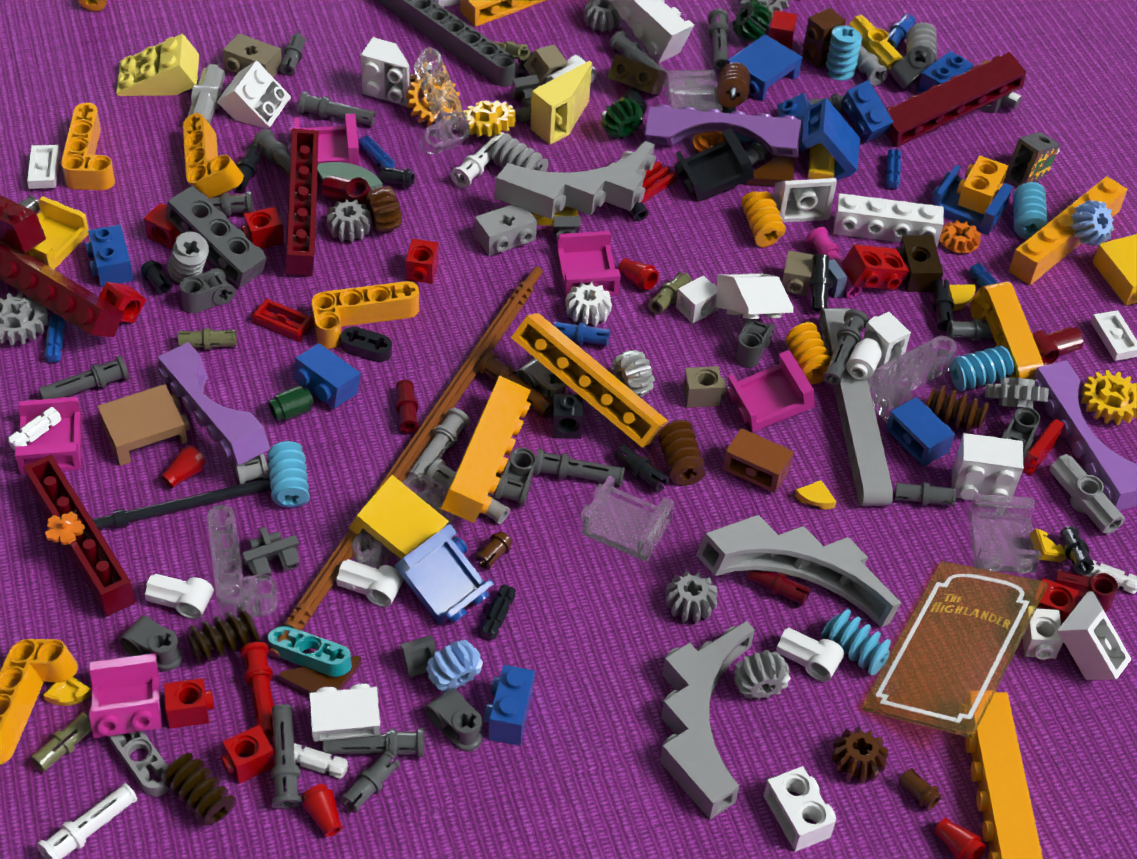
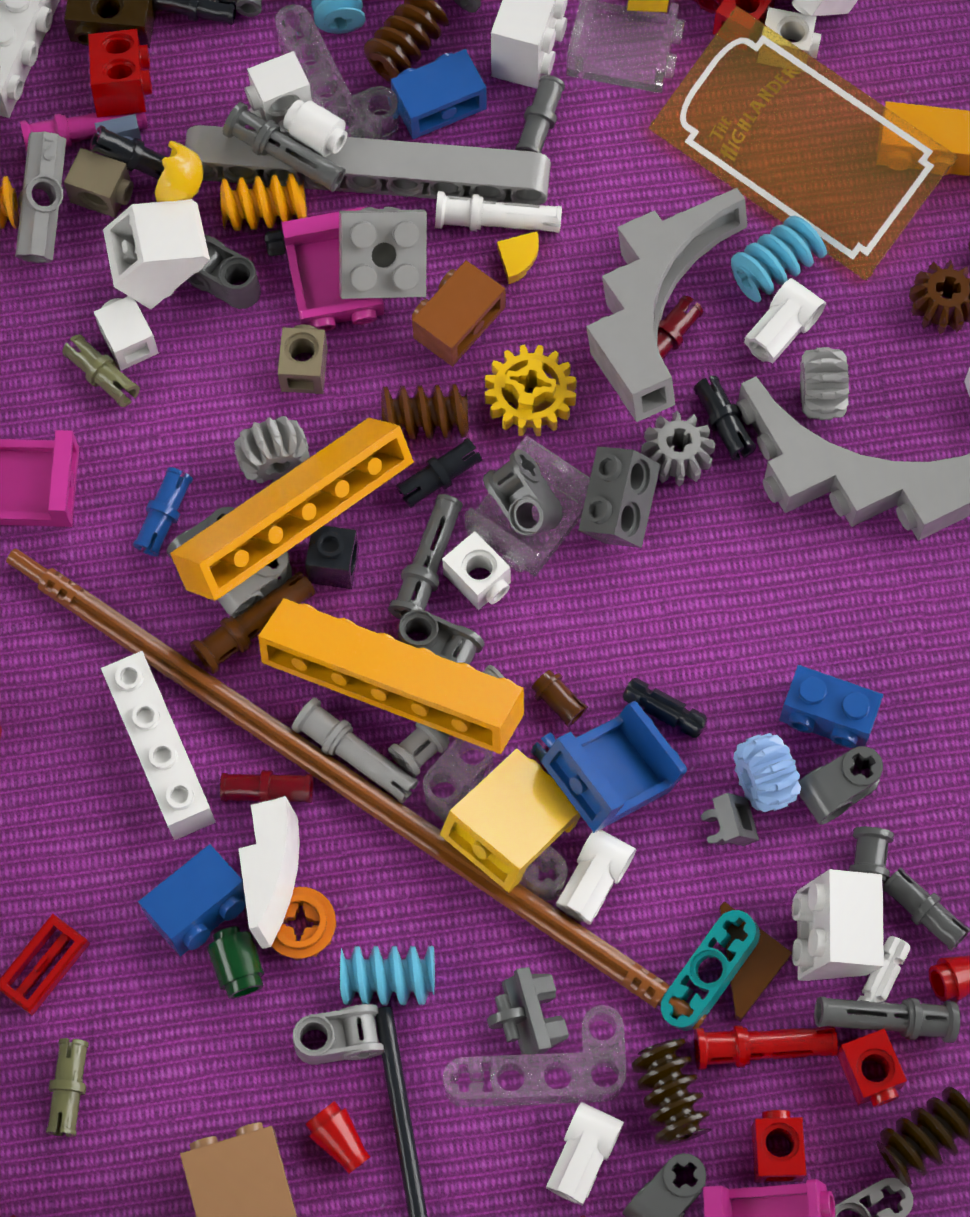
camera: 75 degrees left, 20 degrees up
(236, 431) = (325, 1035): medium lavender arch -> none
(309, 430) = (314, 938): none -> orange gear
(349, 406) = (270, 867): none -> white slope
(361, 306) = (53, 826): light orange beam -> none
(366, 344) = (114, 830): black beam -> none
(424, 347) = (158, 745): none -> white brick
(573, 493) = (474, 554): none -> white brick
(588, 304) = (96, 502): white gear -> none
(630, 506) = (520, 489): none -> dark grey piece
(641, 274) = (51, 407): red cone -> none
(643, 565) = (619, 497): none -> dark grey brick
(712, 506) = (534, 408): none -> yellow gear
(722, 622) = (724, 418): none -> black pin
(759, 247) = (42, 172): none -> light grey piece
(780, 400) = (382, 253): none -> light grey piece
(808, 299) = (180, 176): none -> yellow hair
(839, 467) = (475, 213): none -> white pin

